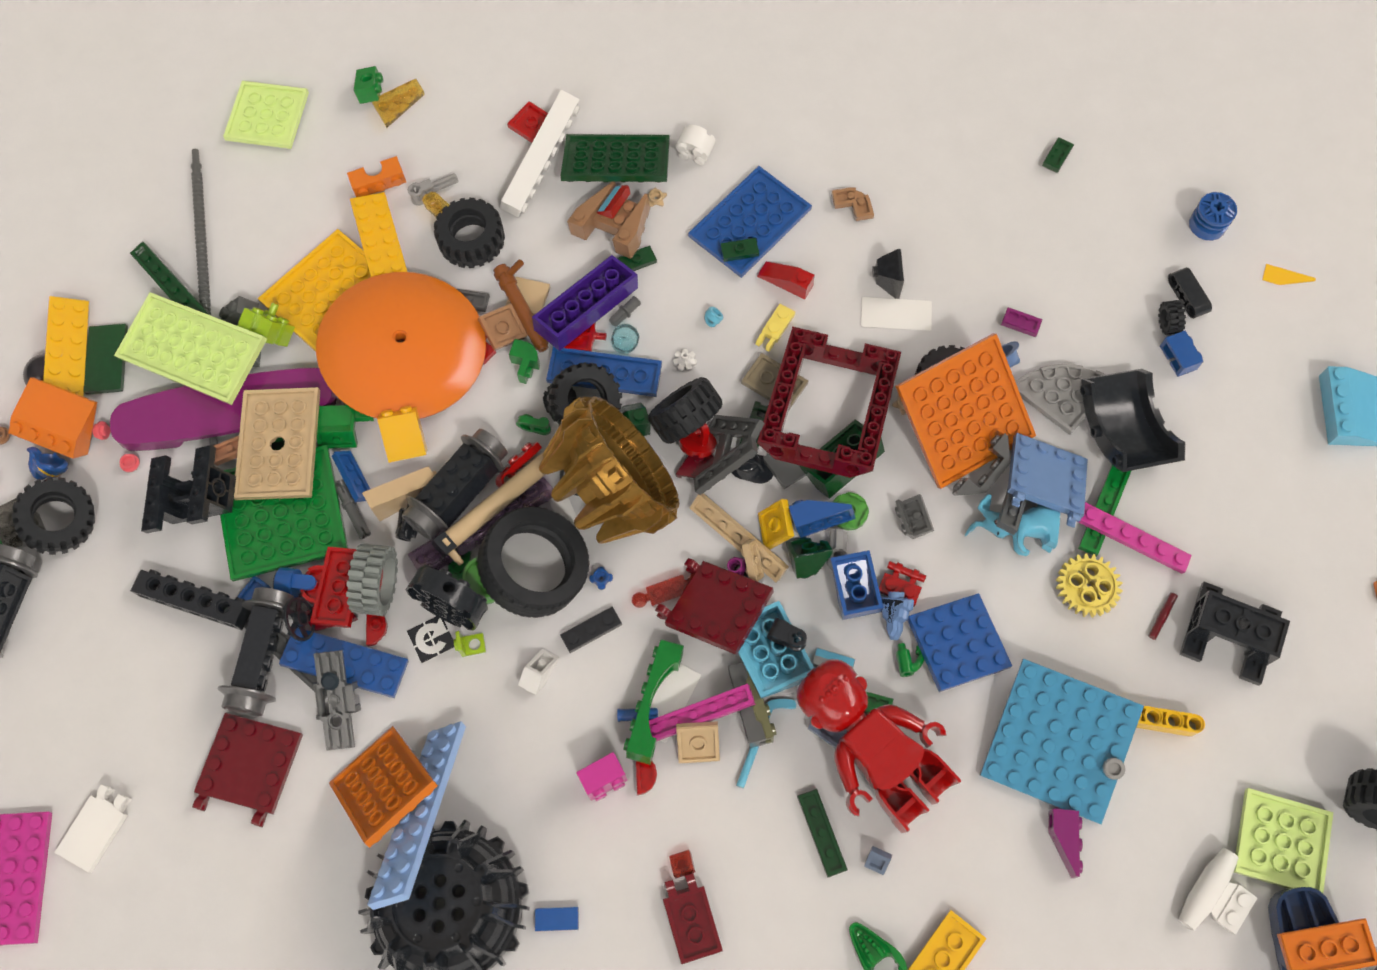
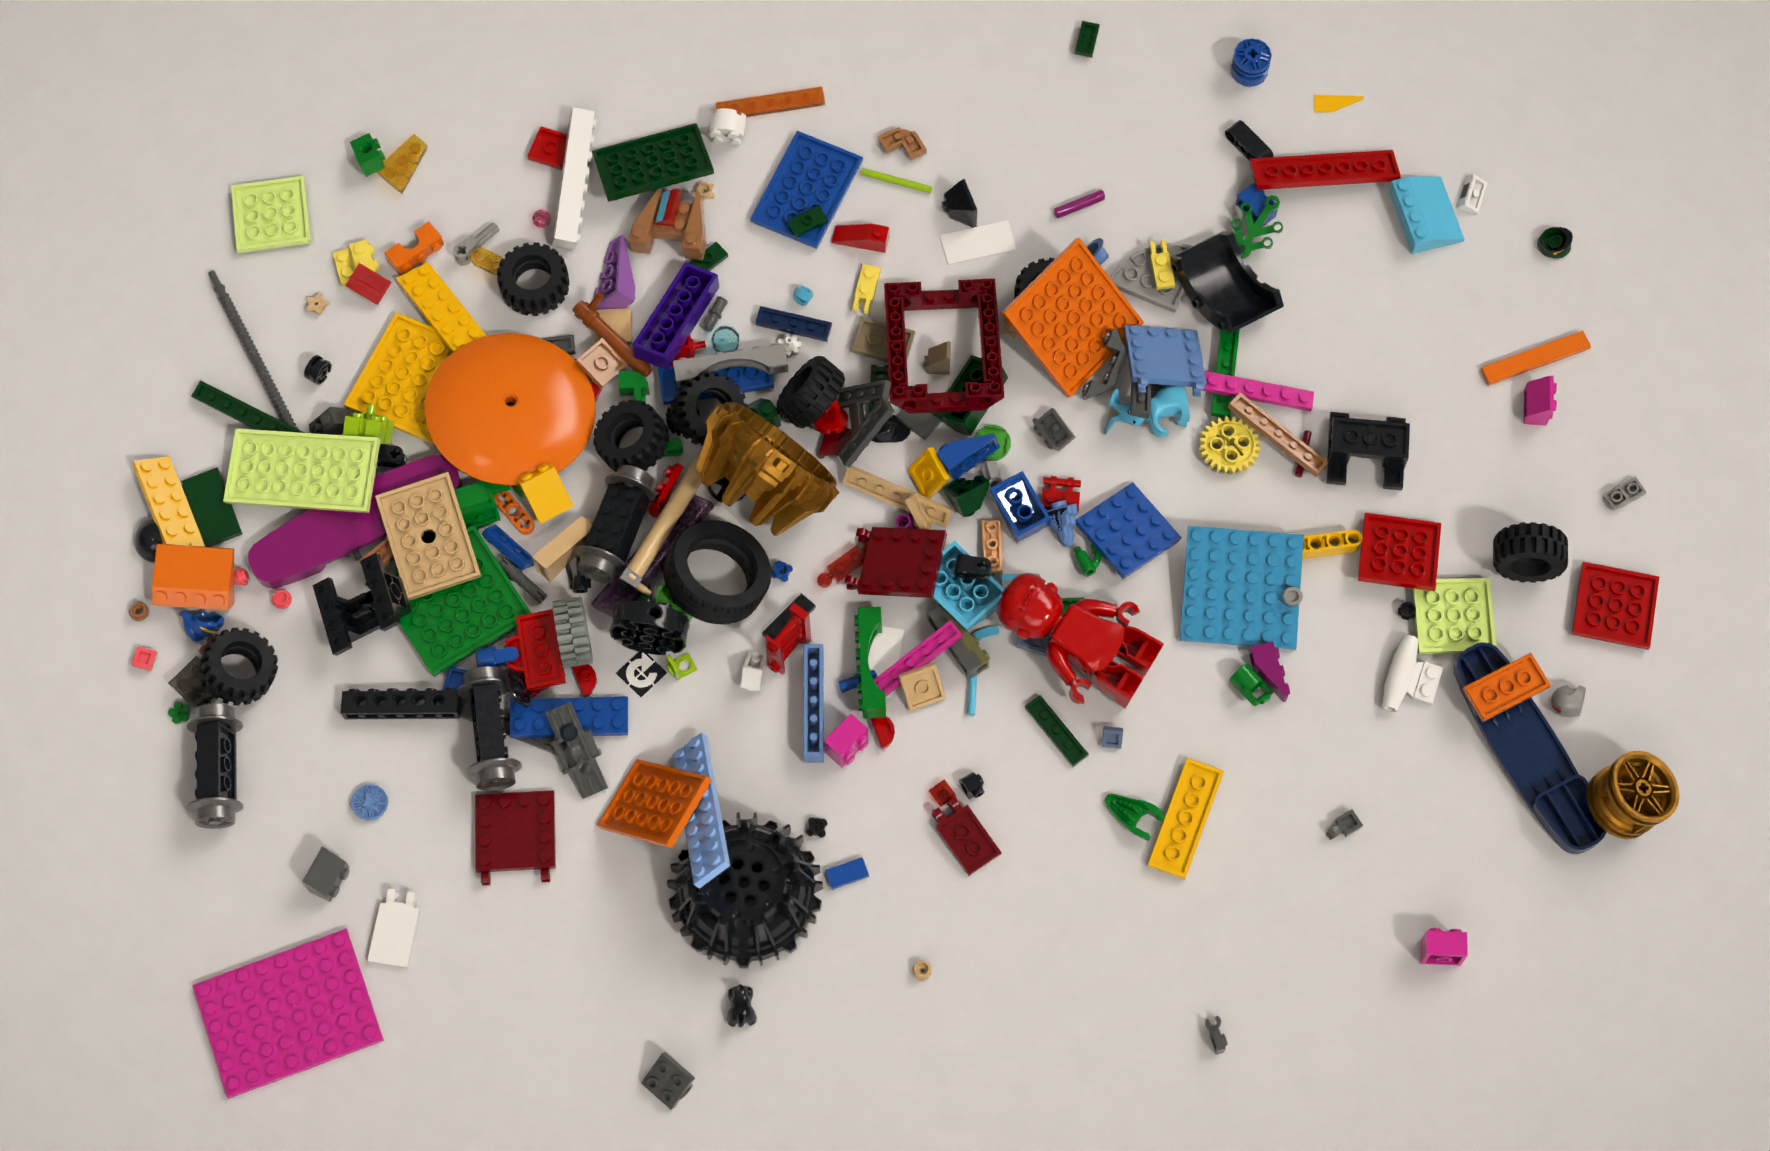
camera: 20 degrees left, 0 degrees up
(48, 750) = (326, 875): none -> dark grey slope
(125, 687) = (369, 802): none -> medium blue wheel
(247, 261) = (317, 369): none -> black wheel
(273, 207) = (316, 308): none -> tan plate
(277, 357) = (388, 453): none -> black piece
(322, 177) = (349, 258): none -> light yellow plate
(322, 196) = (368, 283): none -> red plate
(377, 448) = (522, 513): none -> orange beam
(490, 390) = (621, 420): none -> black tyre
(499, 181) = (541, 218): none -> clear pink plate
(537, 859) = (821, 823): none -> black plate
(547, 254) = (617, 277): none -> medium lavender wedge
(577, 652) = (793, 633): none -> red fence
(583, 725) = (813, 703): none -> medium blue brick
(658, 367) = (768, 359): none -> light grey arch
(695, 341) = (793, 324): none -> dark blue plate
(716, 865) = (972, 785): none -> black plate
(750, 136) = (776, 102): none -> clear orange tile
(818, 605) = (992, 536): none -> light nougat tile
(822, 414) = (938, 359): none -> dark tan slope
(841, 238) = (896, 180): none -> lime bar
(1003, 304) = (1079, 203): none -> magenta axle
(1021, 322) = (1099, 217): magenta plate -> none
(1038, 844) = (1247, 682): none -> green piece
(1070, 386) = (1161, 266): none -> light yellow hinge
(1143, 590) = (1278, 434): none -> medium nougat plate
(1172, 317) = (1238, 173): black tyre -> none
(1174, 376) = (1255, 229): none -> green plant
(1237, 816) = (1407, 606): none -> black plate
(1241, 754) = (1399, 552): none -> red plate
(1261, 337) = (1324, 169): none -> red plate

